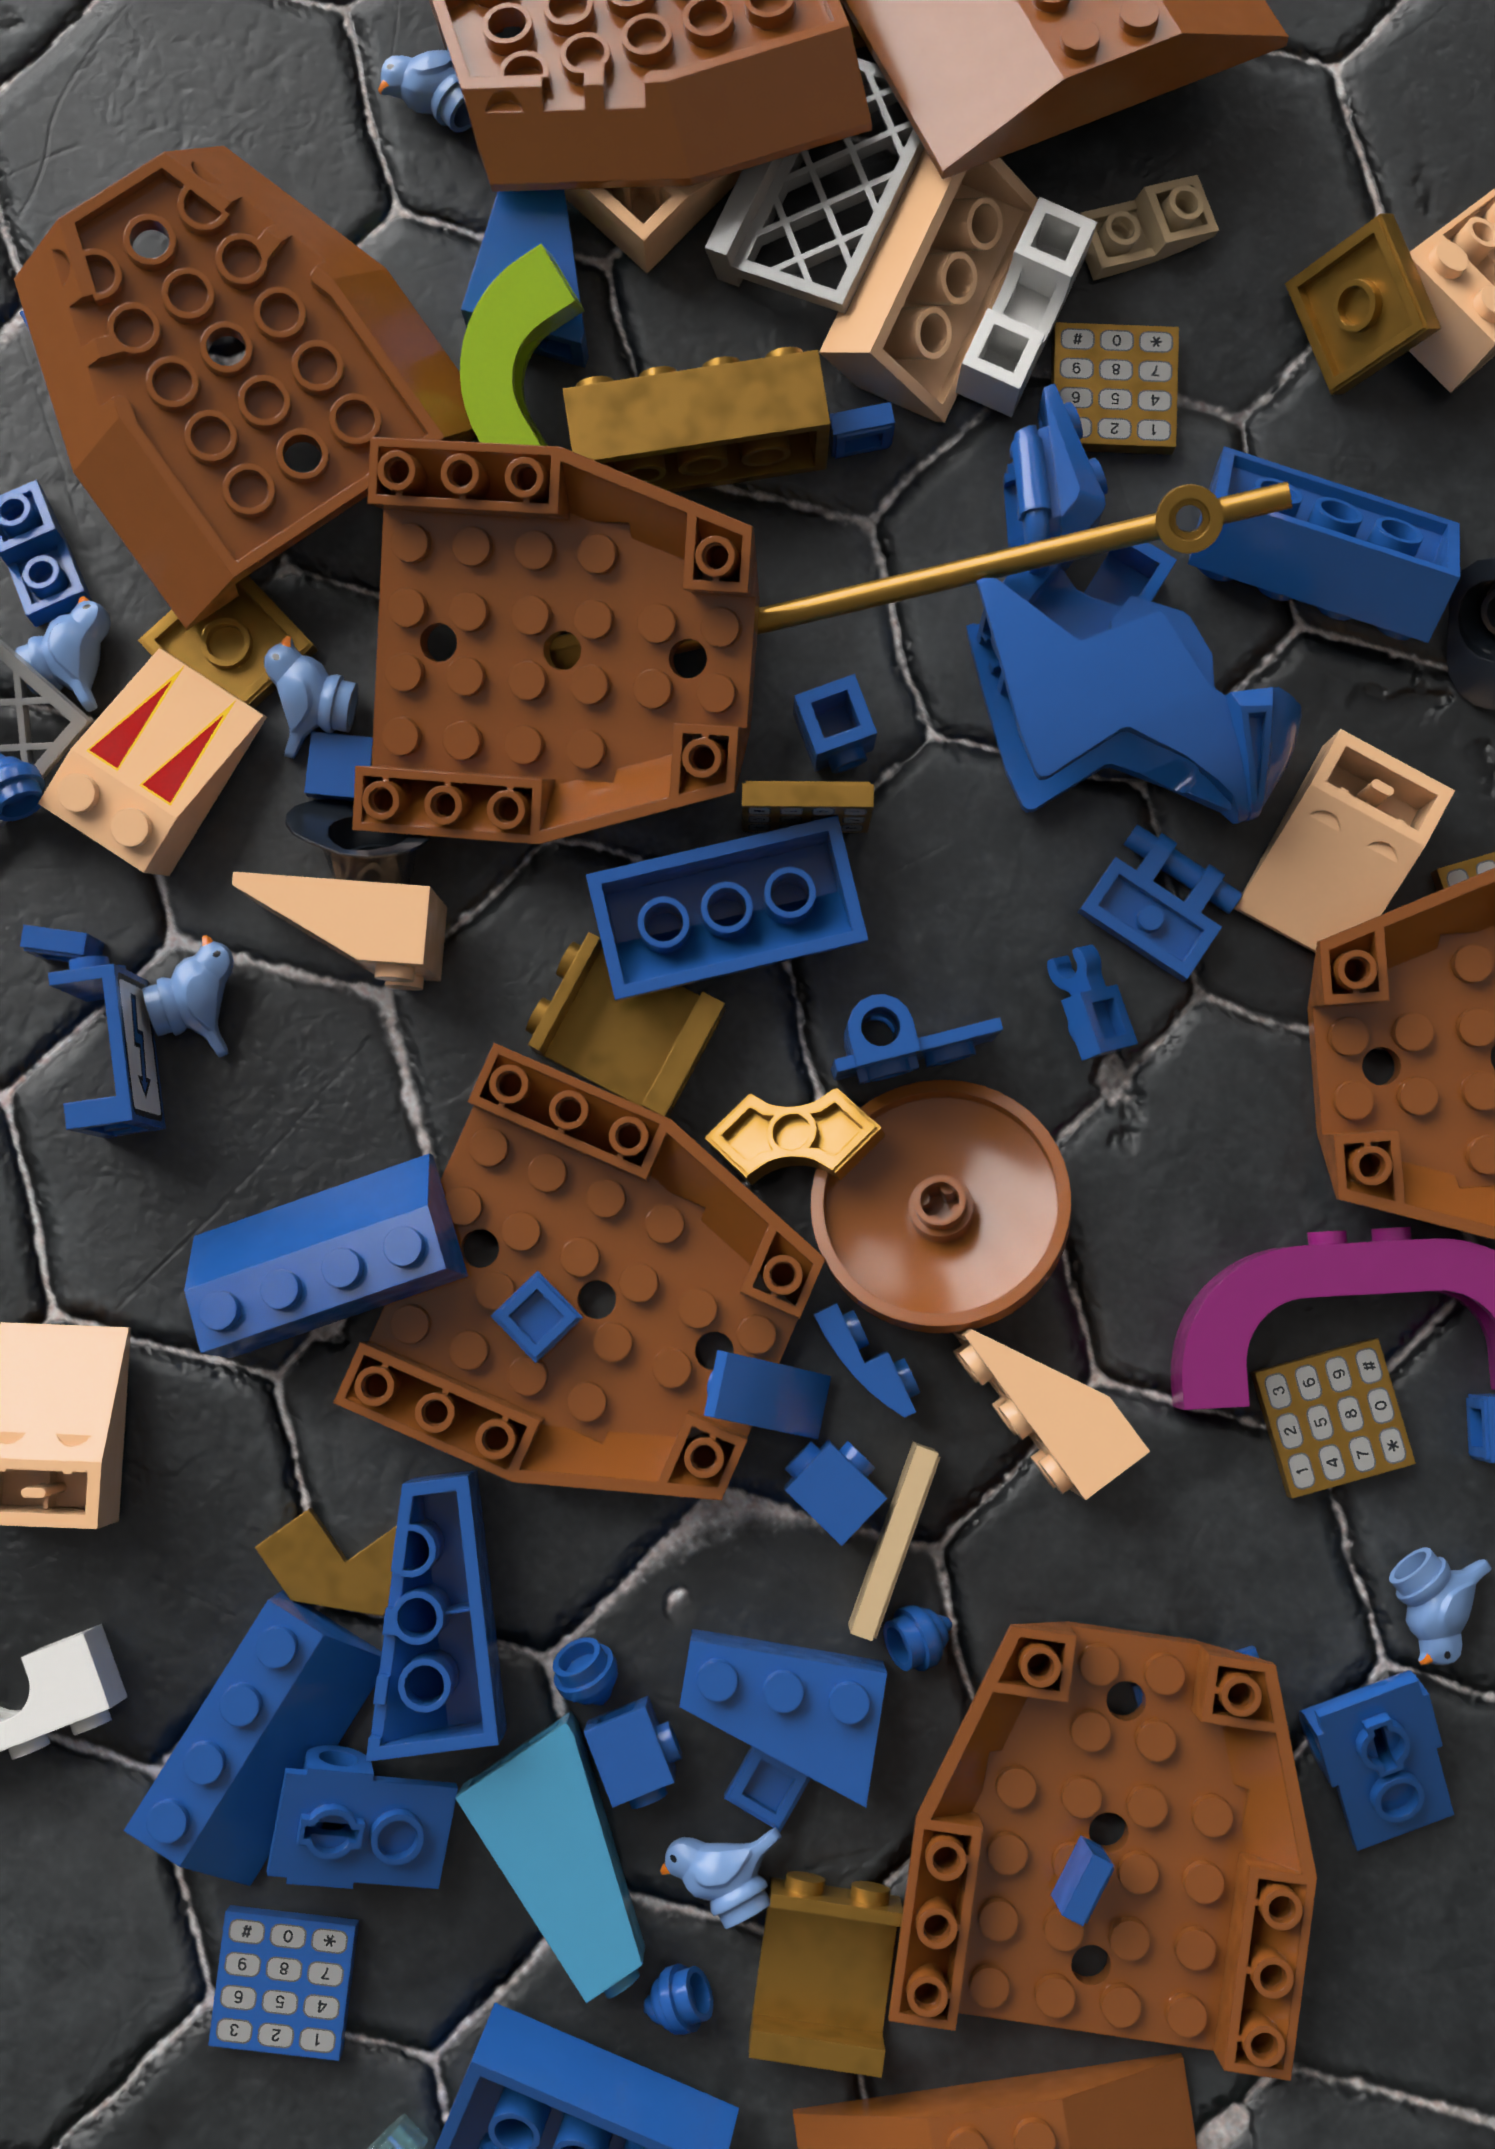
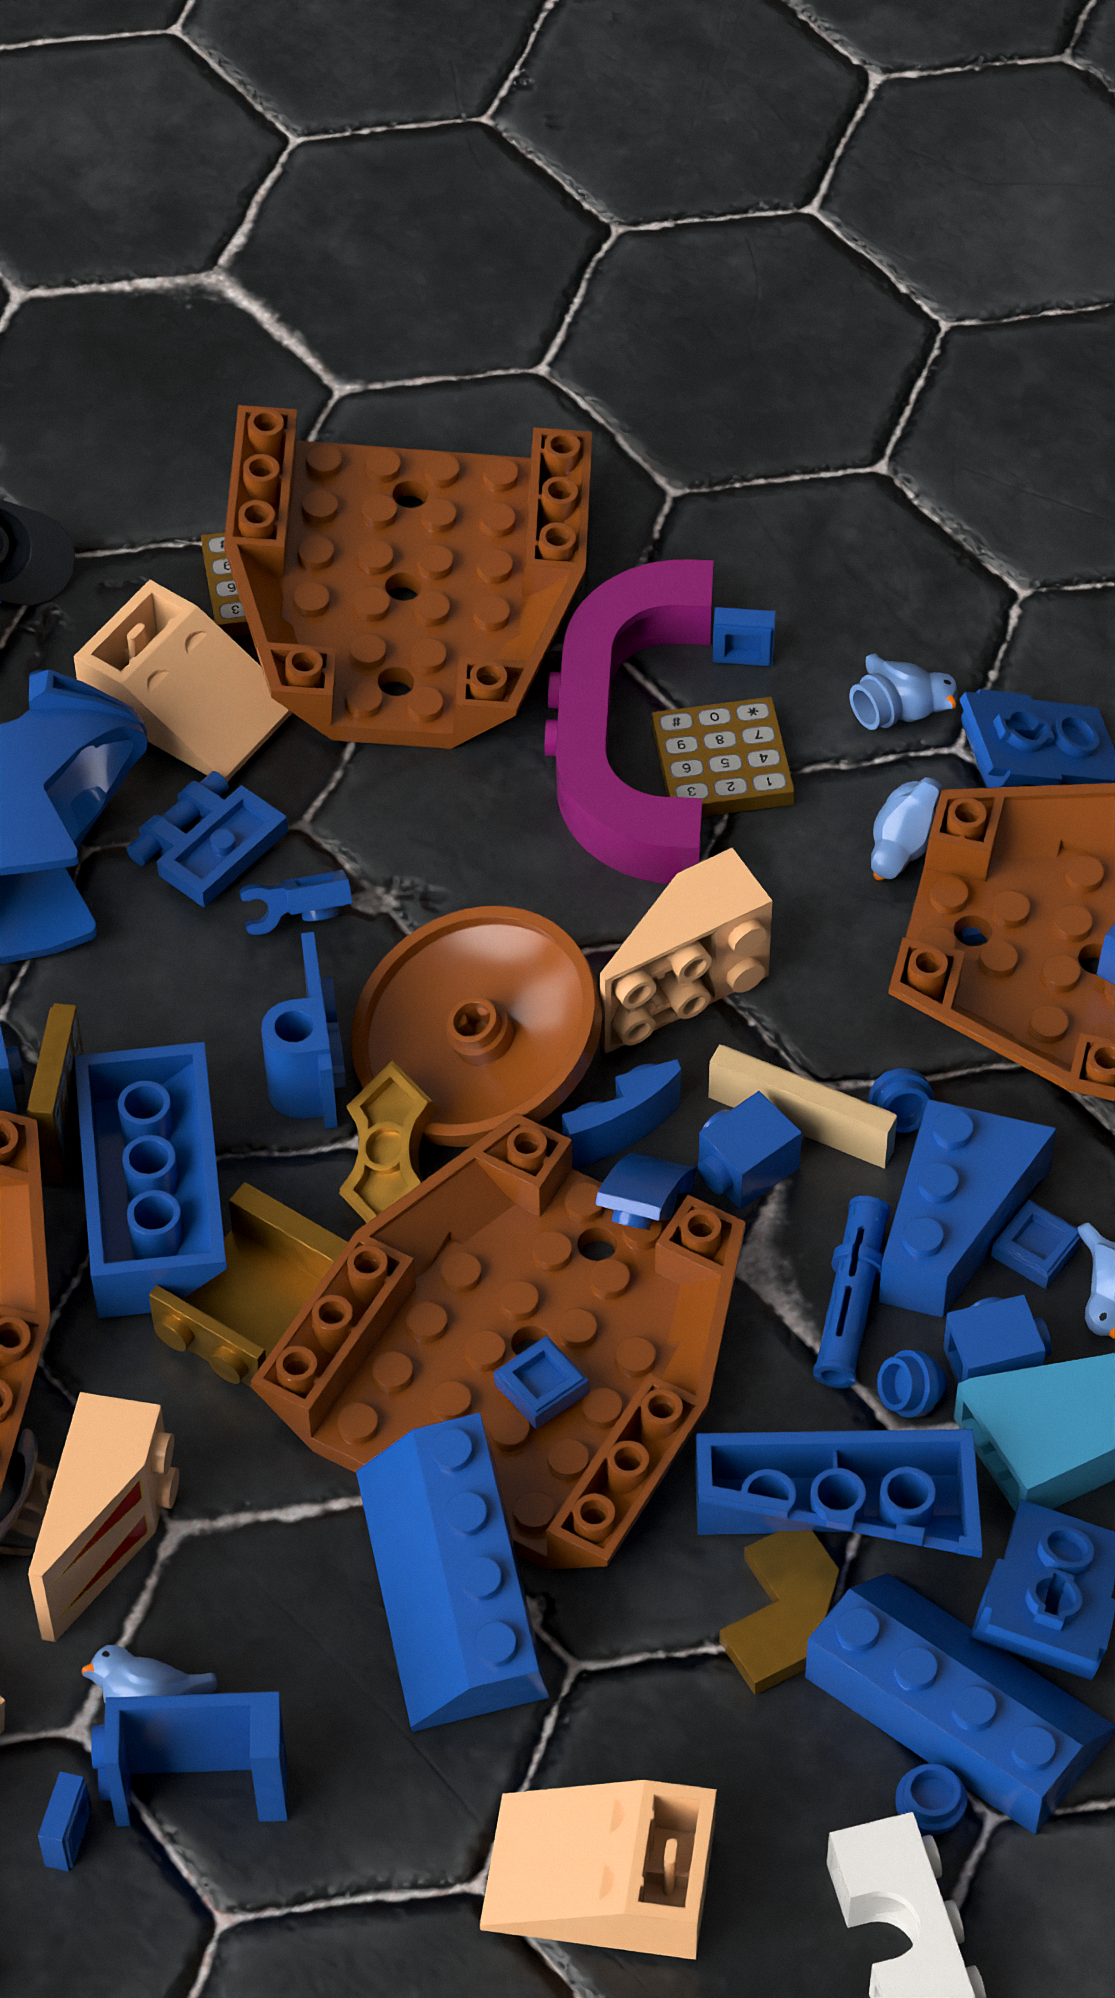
camera: 85 degrees left, 30 degrees down
(158, 1717) = (933, 1796): none -> blue plate
(610, 1595) = (856, 1268): none -> blue pin
(1255, 1621) = (904, 827): none -> medium blue animal

